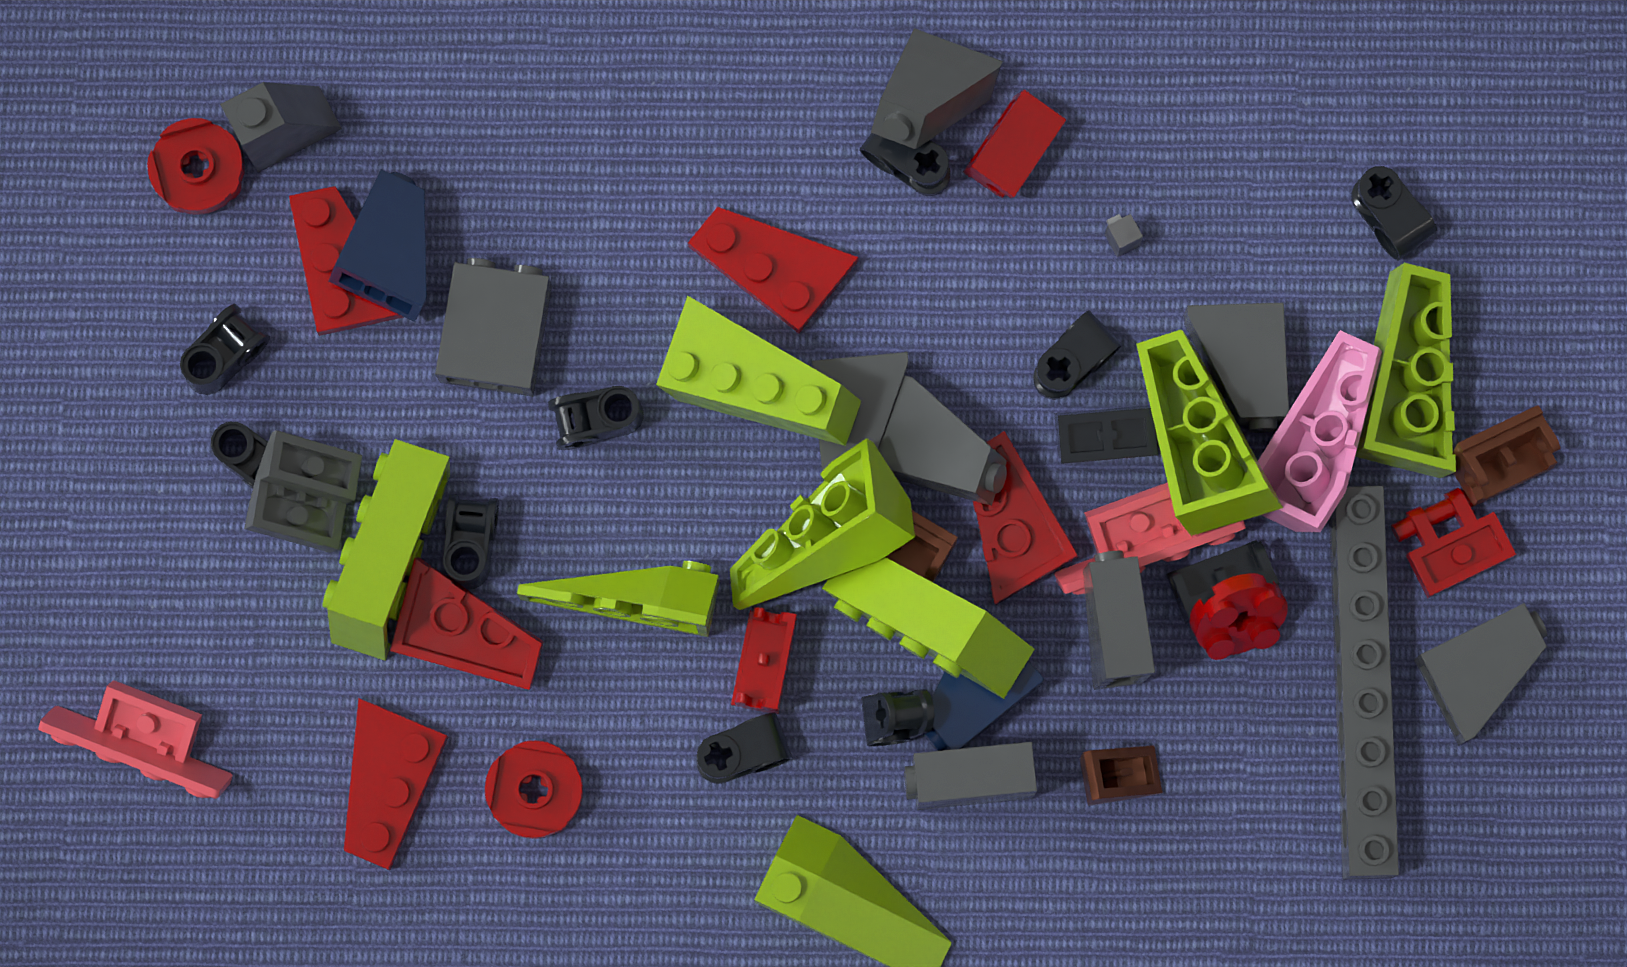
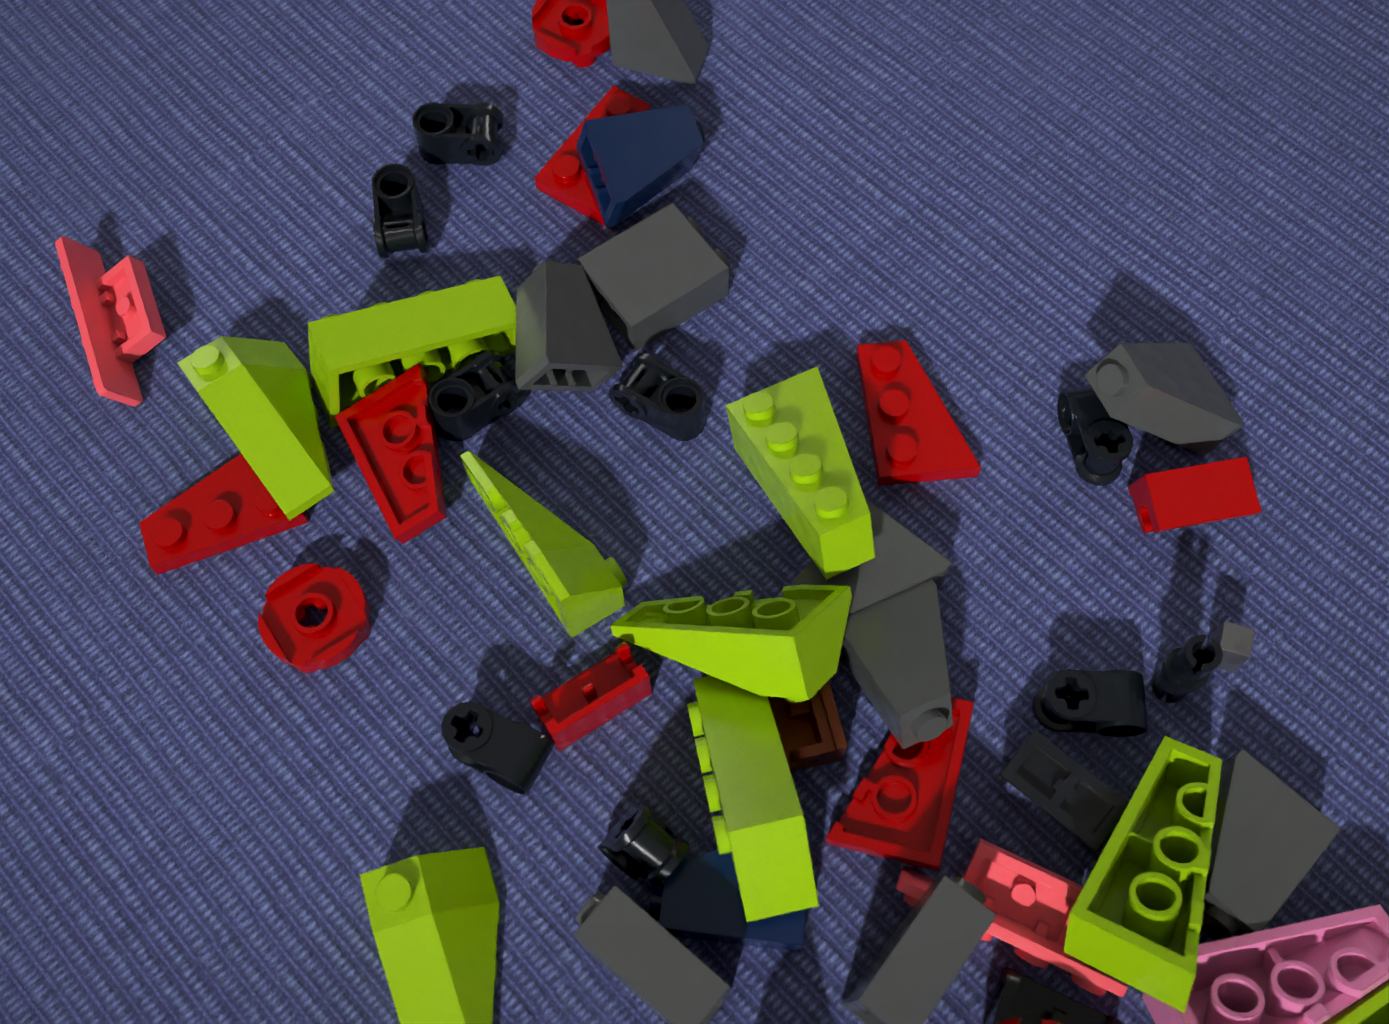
camera: 45 degrees right, 15 degrees down
(303, 491) = (402, 251): dark grey slope -> none
(336, 692) = (269, 414): none -> lime wedge
(482, 438) = (561, 332): none -> dark grey slope
(1112, 285) = (1186, 669): none -> black pin

